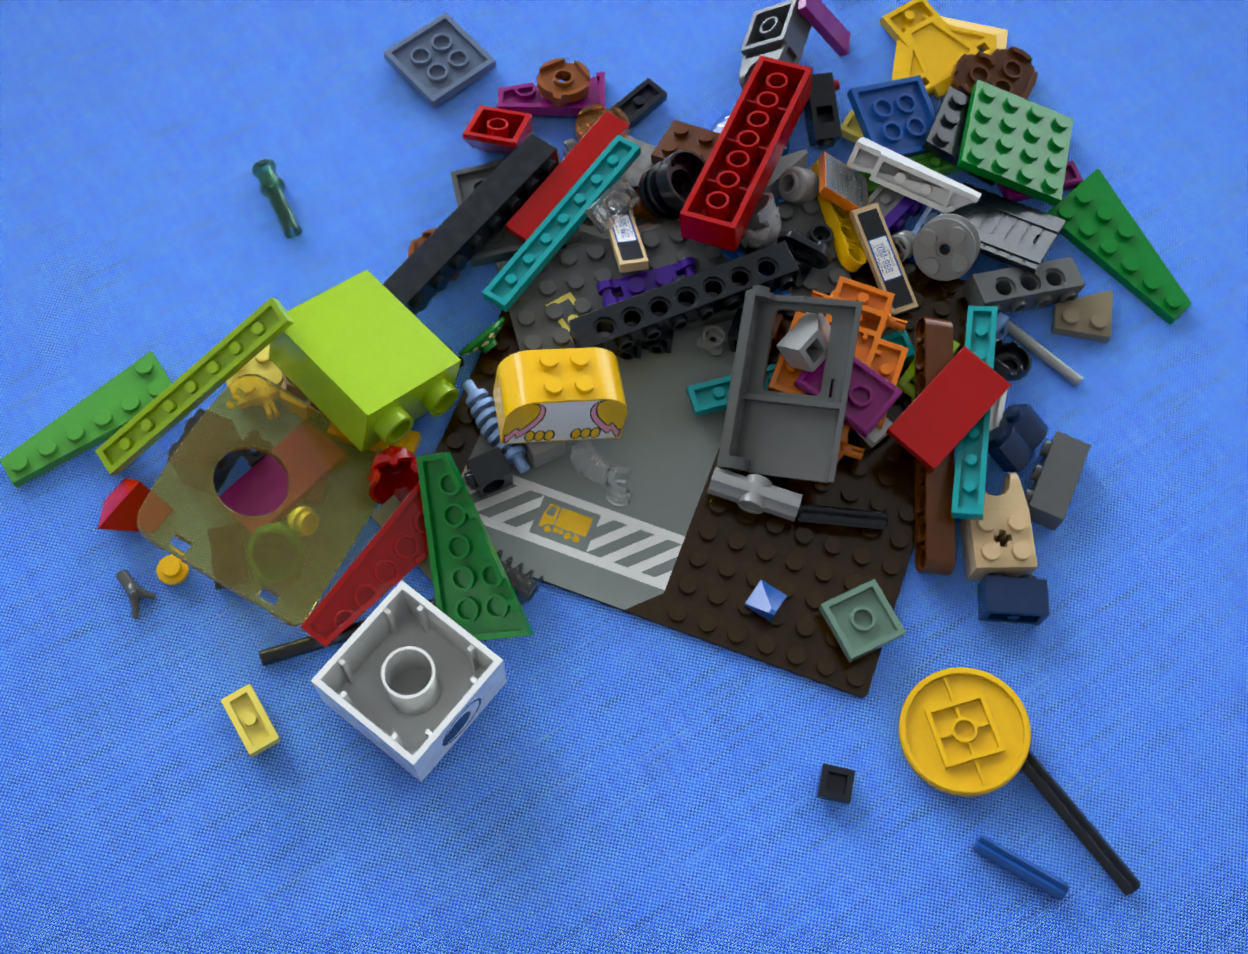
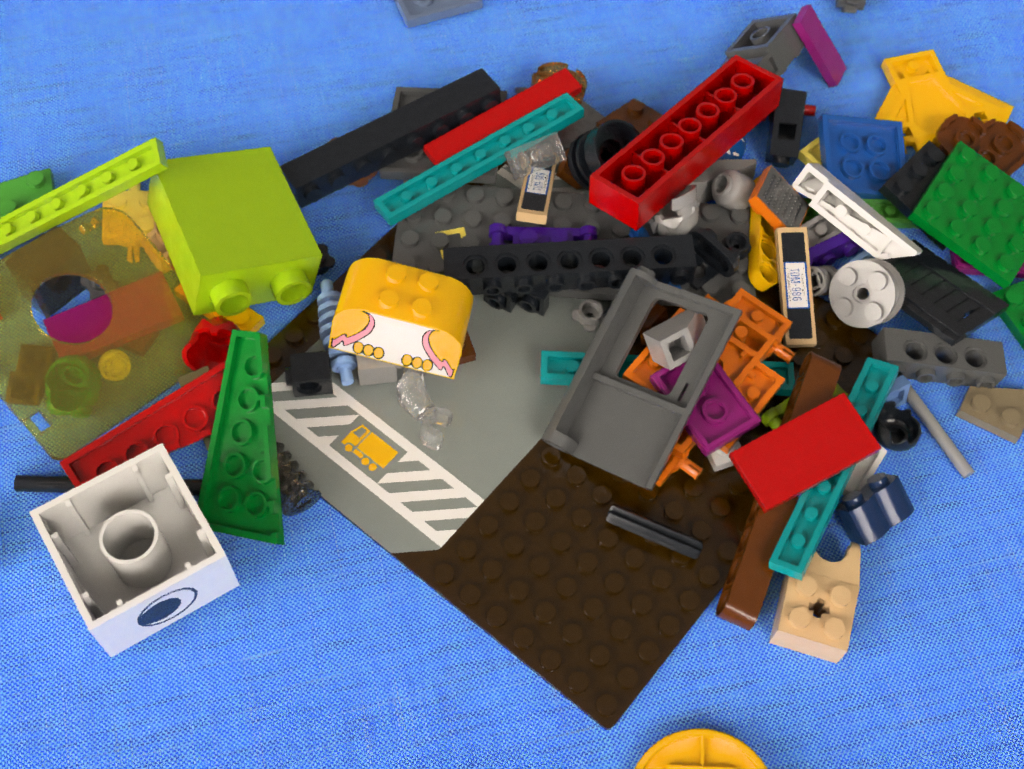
camera: 20 degrees right, 5 degrees down
(273, 188) = (226, 57): pin -> none
(485, 340) = (360, 246): green dish -> none
(497, 129) = (453, 58): red slope -> none
(527, 99) = (523, 47): magenta wing -> none
(576, 85) = (548, 41): dark orange plate -> none
(641, 101) = (609, 74): black plate -> none
(754, 493) = (569, 478): light grey piece -> none
(765, 600) = (539, 591): slope -> none
(862, 620) = (633, 645): sand green plate -> none
(1012, 599) = (810, 678): dark blue brick -> none
(1055, 479) = (902, 567): dark grey brick -> none

